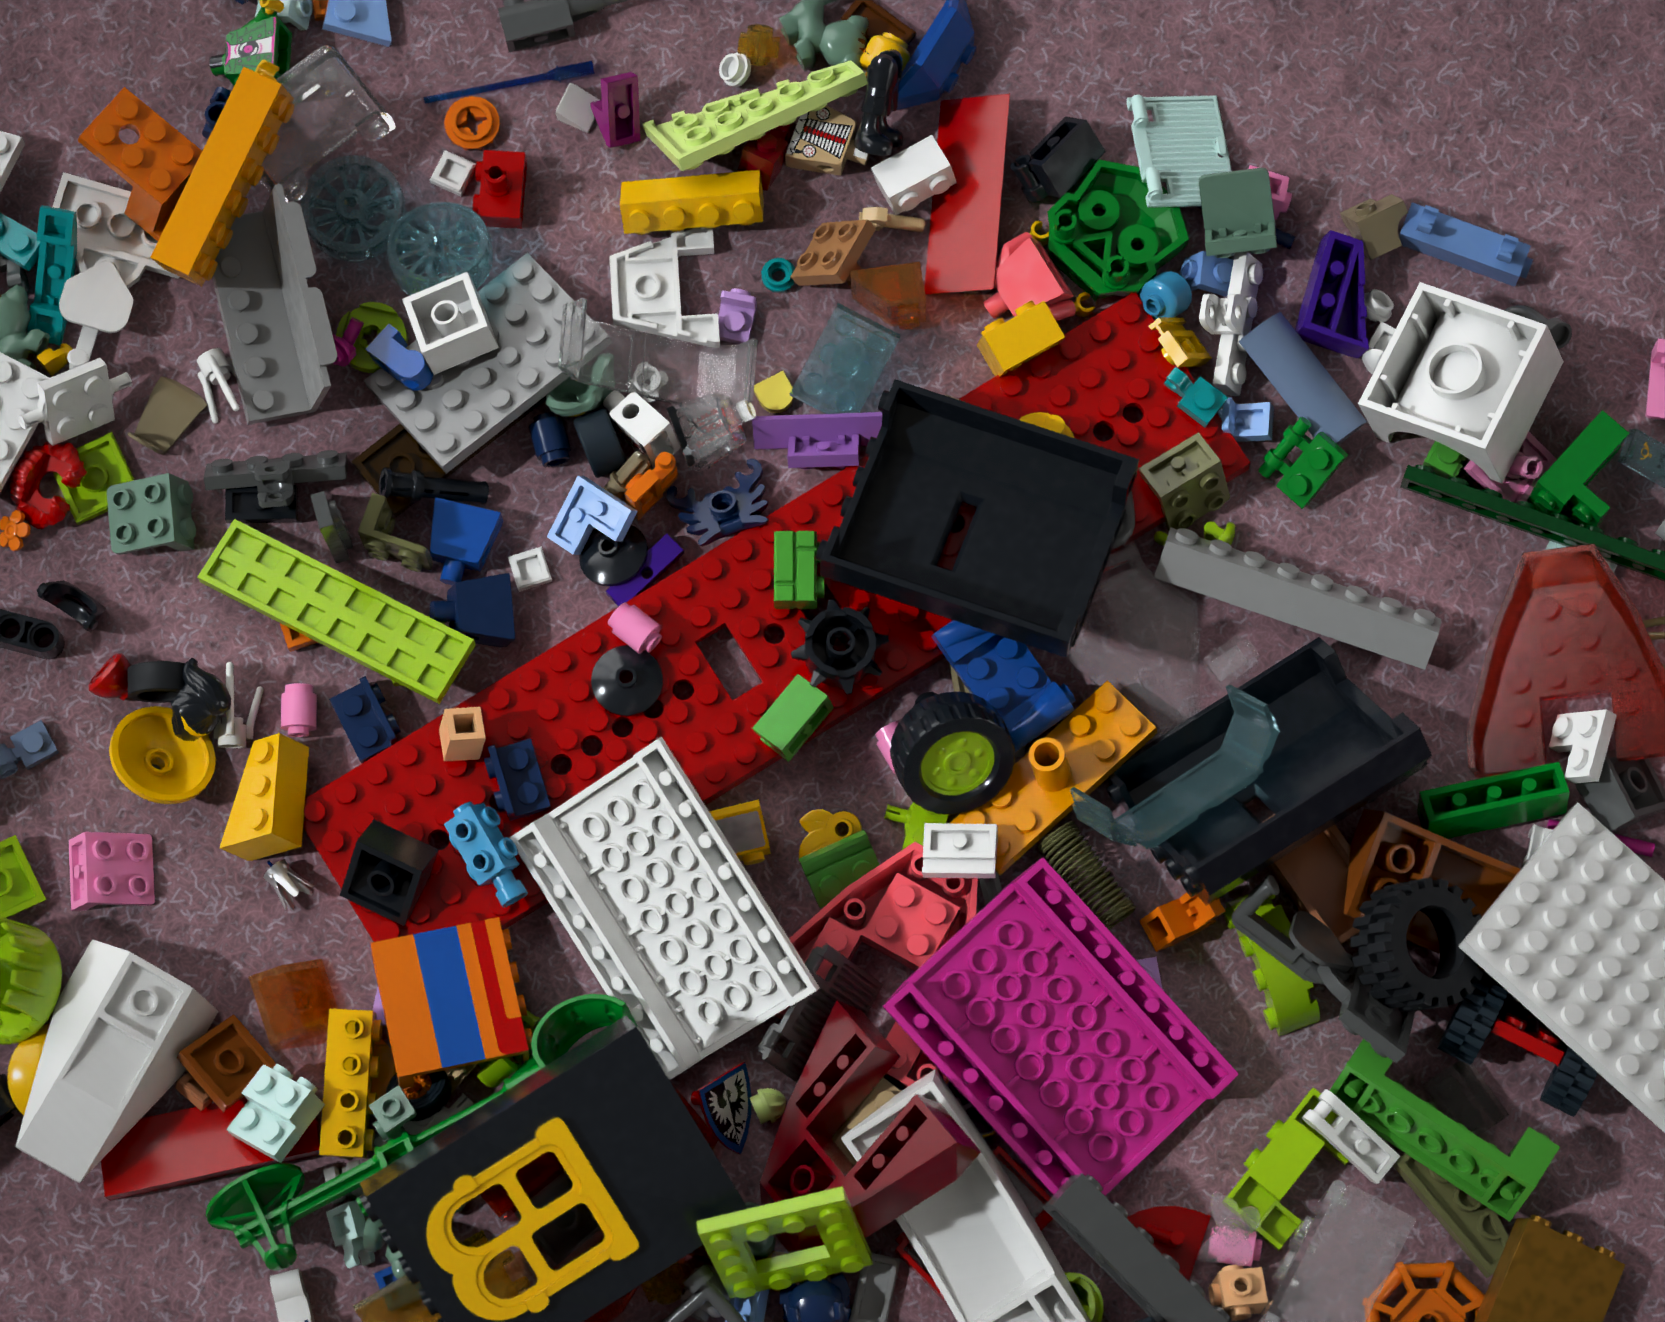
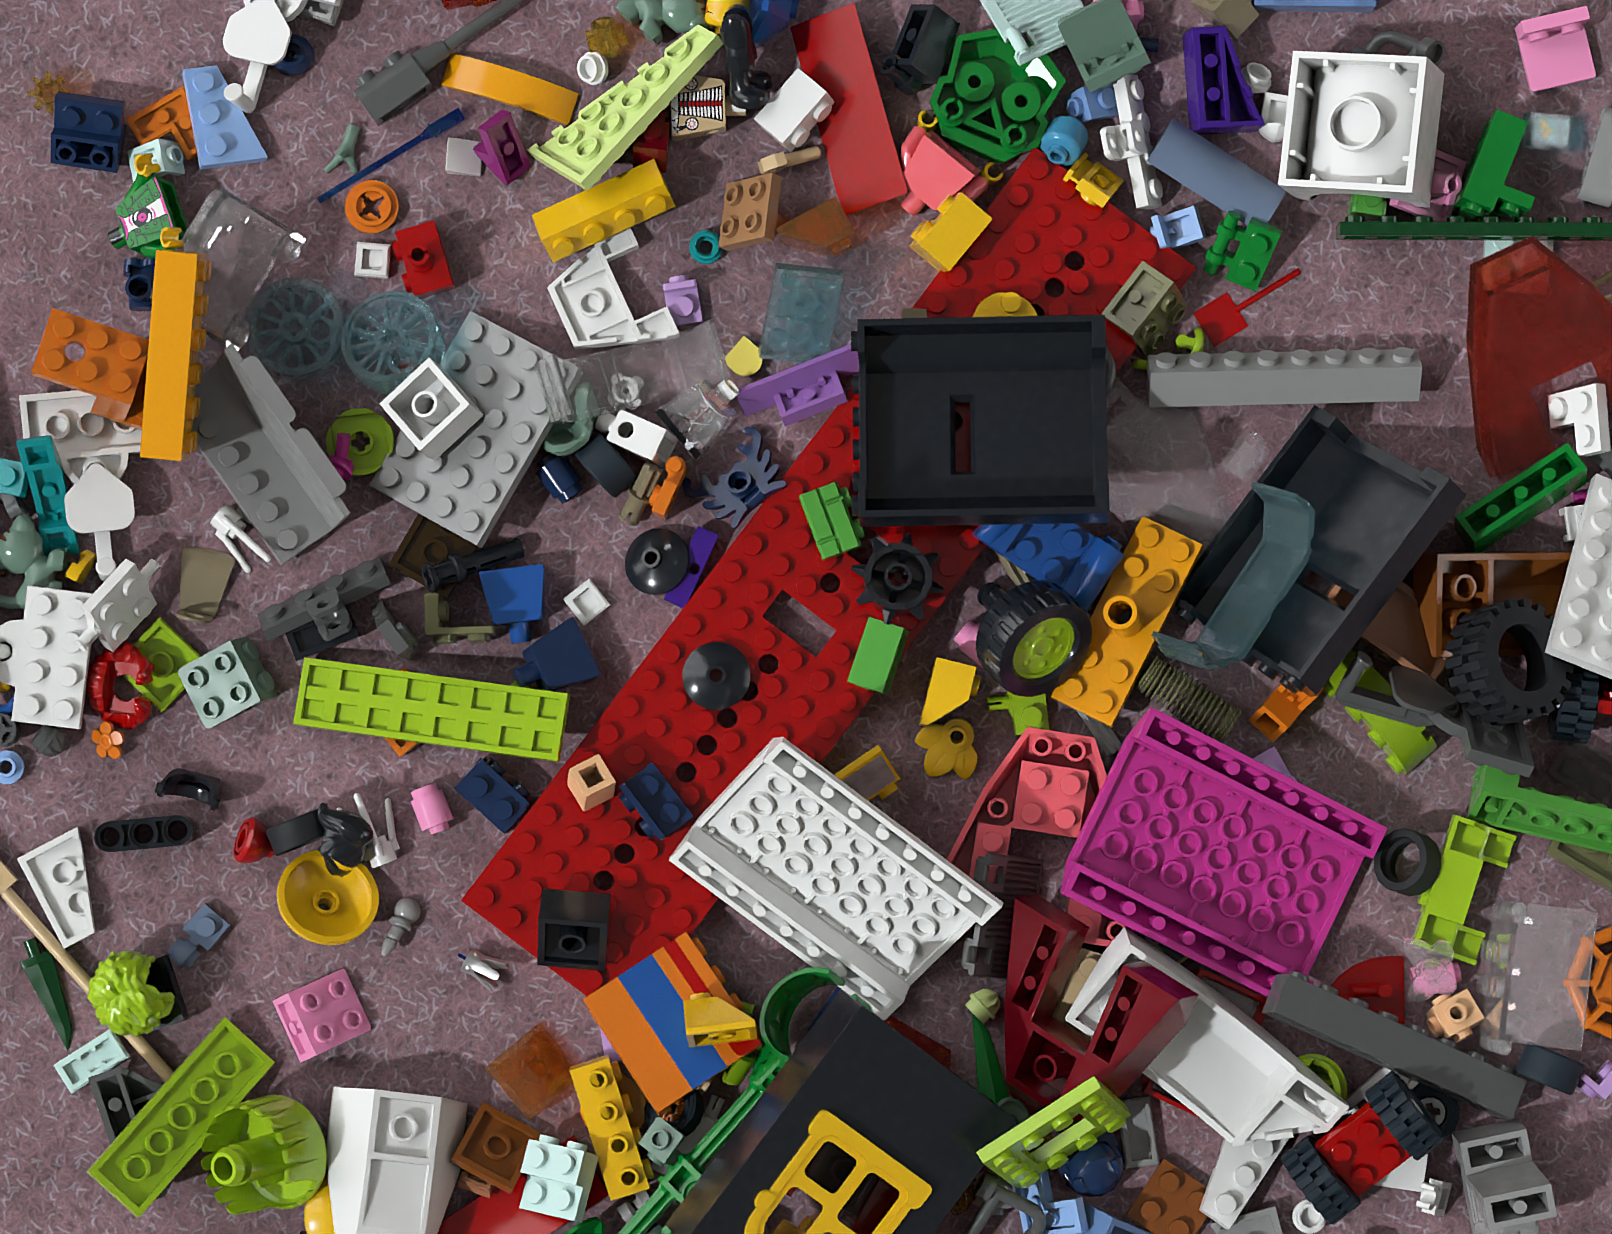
camera: 25 degrees left, 10 degrees up
(220, 813) = (405, 913): none -> light grey bar
(269, 800) = (439, 901): yellow wedge -> none
(405, 365) = (403, 462): blue leg -> none
(469, 62) = (346, 150): none -> sand green bar
(485, 850) = (652, 878): dark azure brick -> none
(490, 1009) = (715, 1021): none -> yellow slope
(589, 508) = (619, 530): light blue plate -> none
(635, 628) = (706, 627): bright pink brick -> none
(649, 60) = (510, 88): none -> light orange slope
(727, 1107) = (949, 1021): shield -> none
(749, 1166) = (989, 1074): none -> green bar
(838, 866) = (967, 771): bright green plate -> none
(849, 778) = (948, 689): none -> yellow slope
(959, 850) = (1072, 722): white plate -> none
(1199, 399) = (1131, 229): teal plate -> none
(1259, 1133) = (1427, 869): none -> black tyre
(1260, 525) = (1223, 319): none -> red piece
(1352, 1137) = (1505, 846): white plate -> none

